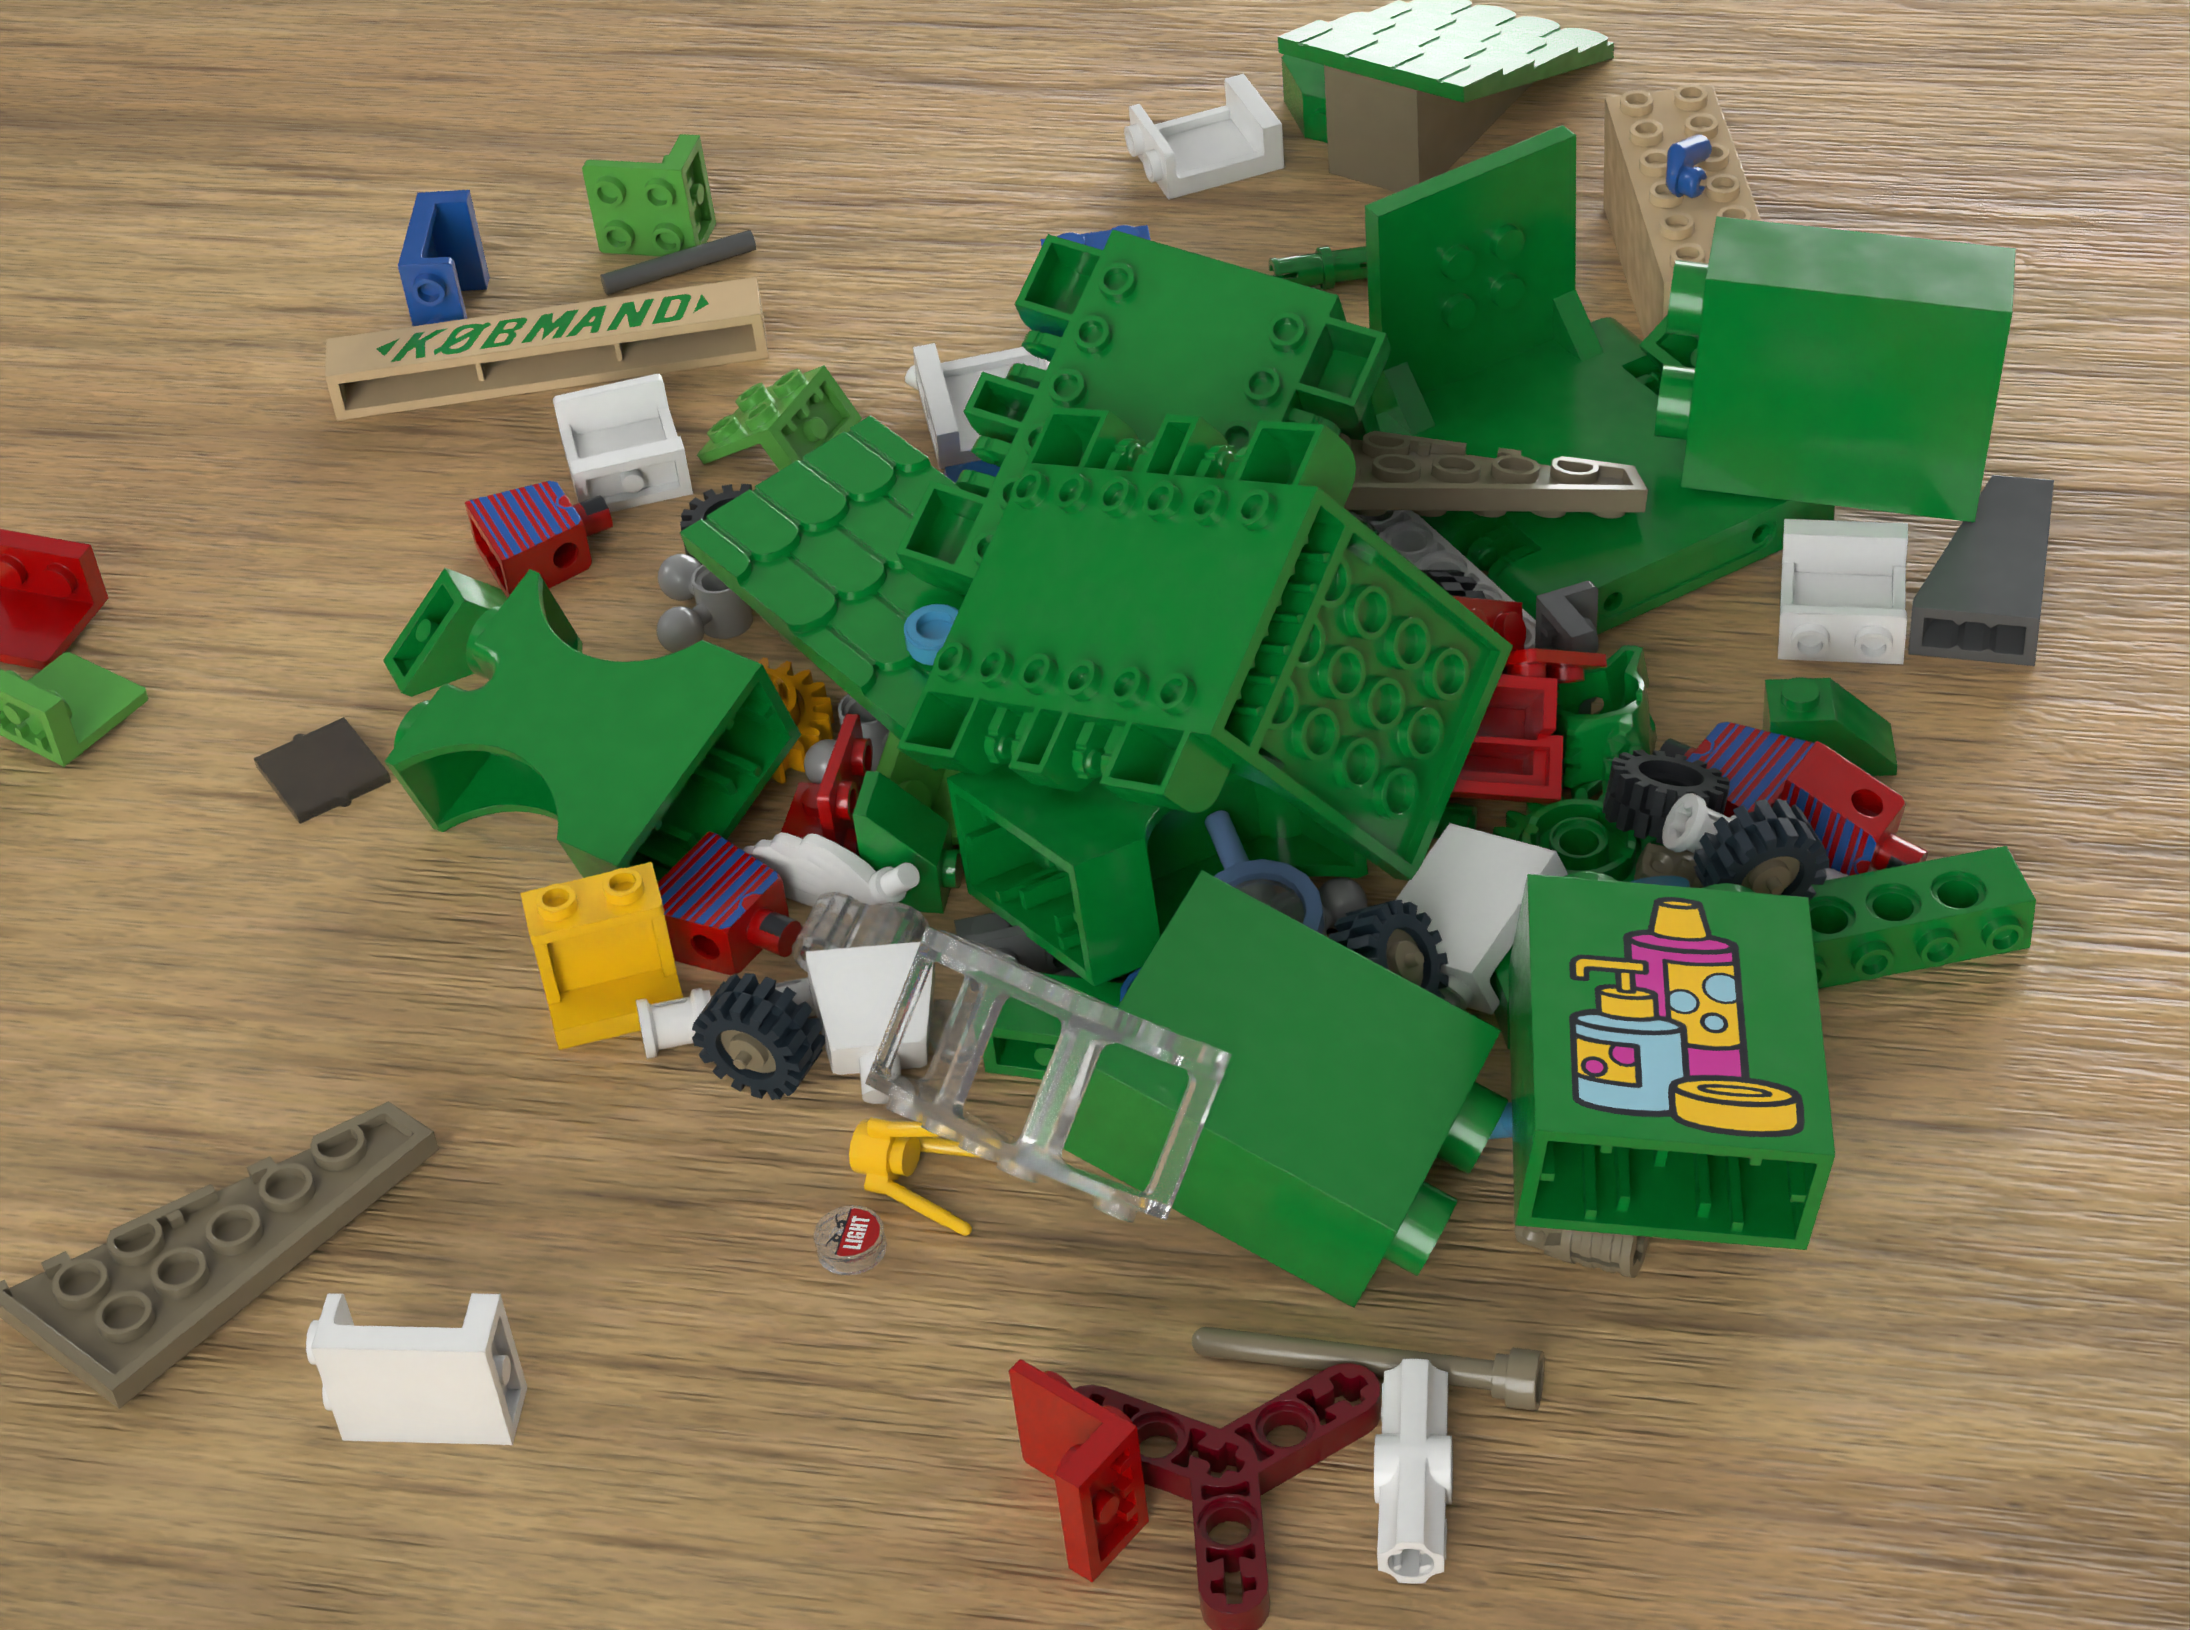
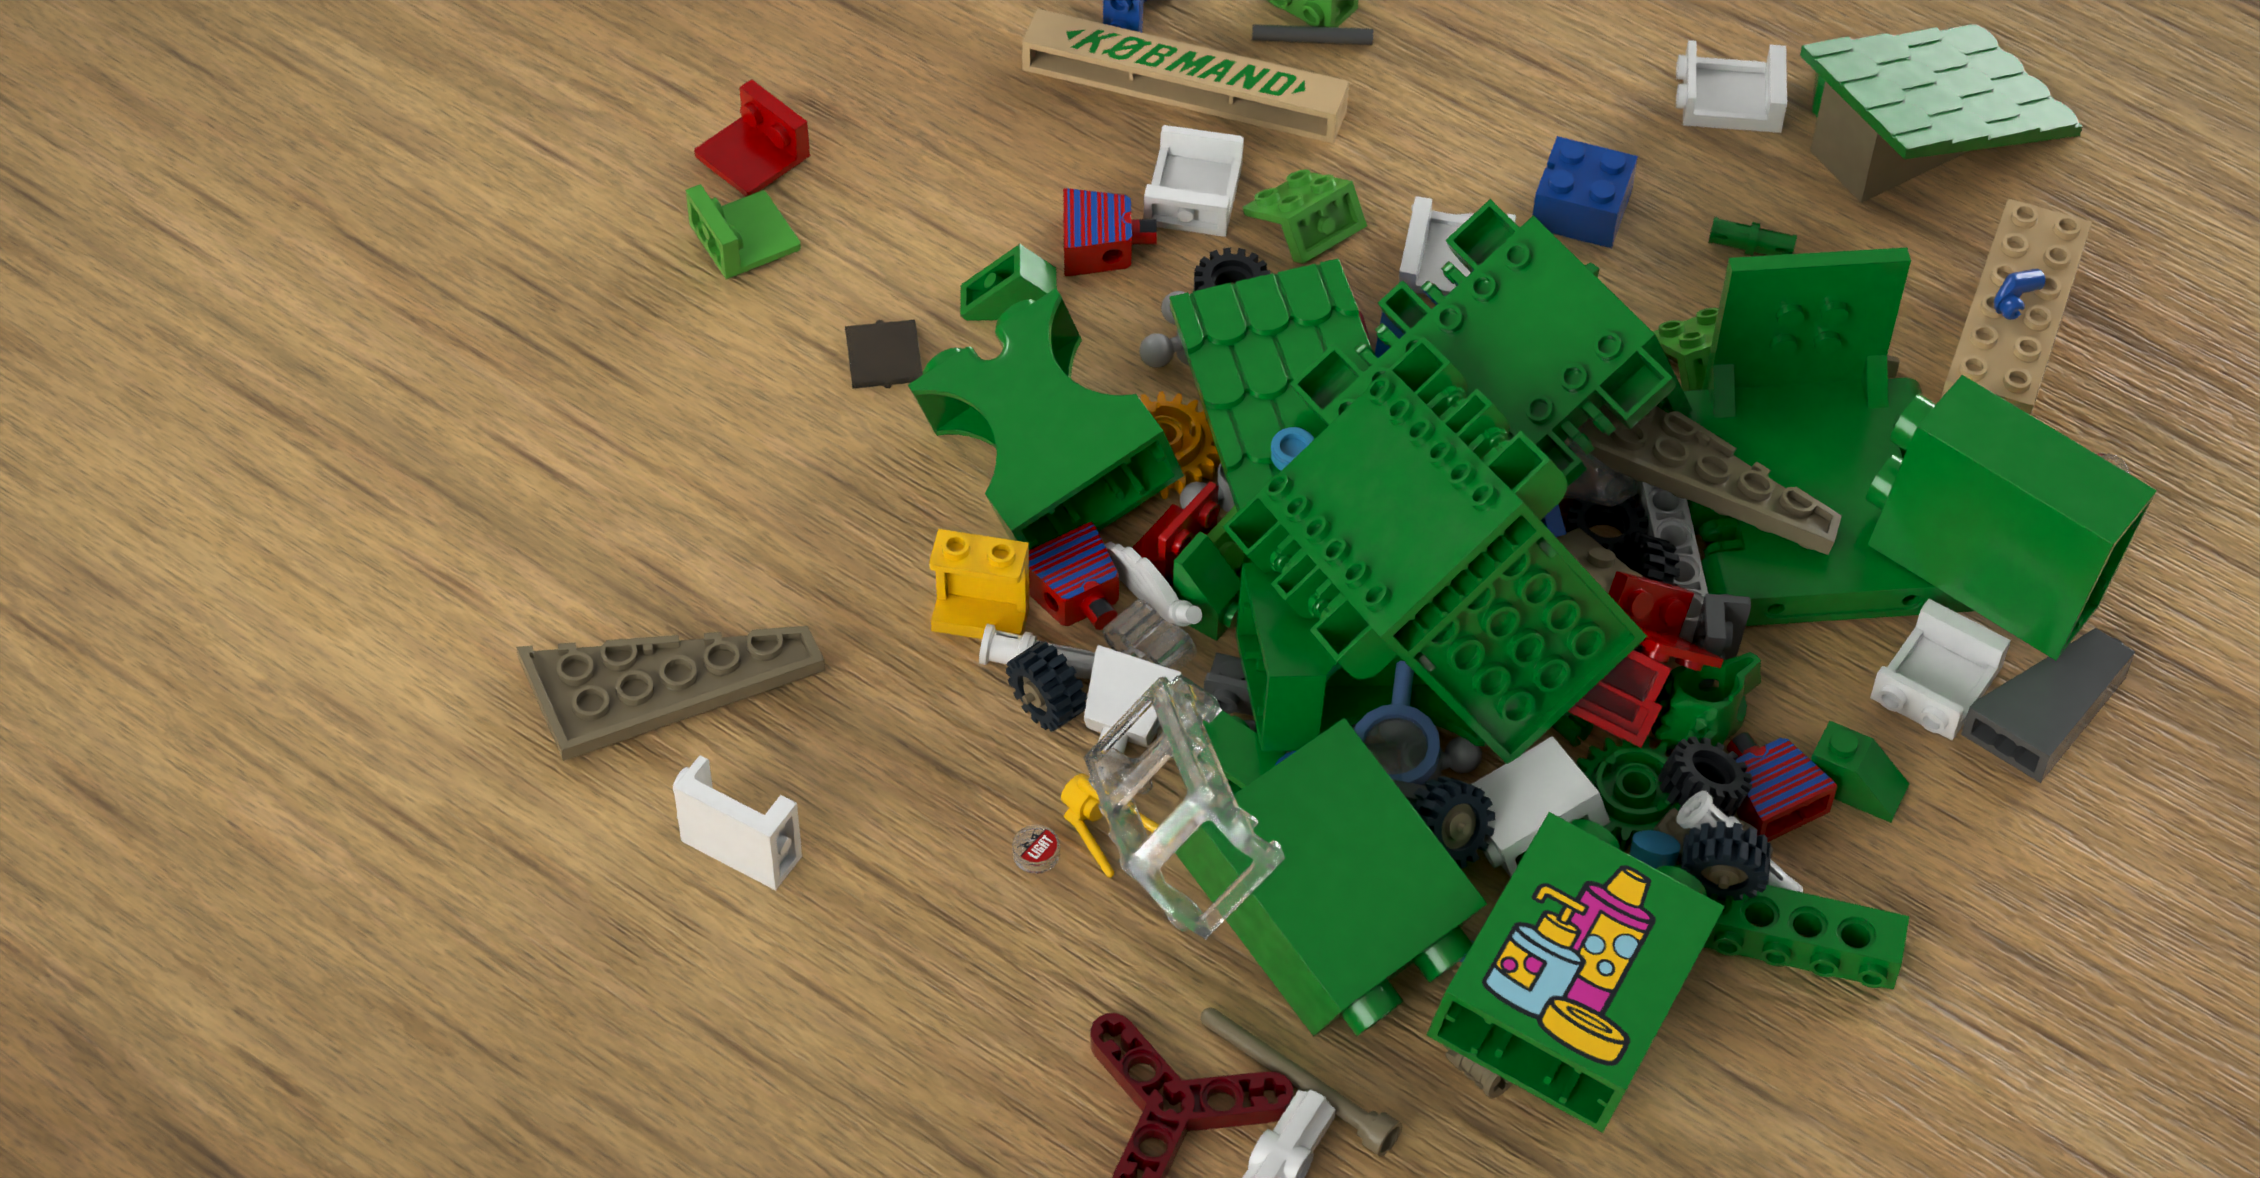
camera: 20 degrees right, 10 degrees up
(1090, 1456) = (1086, 1083): red bracket -> none
(1850, 813) = (1814, 848): red torso -> none

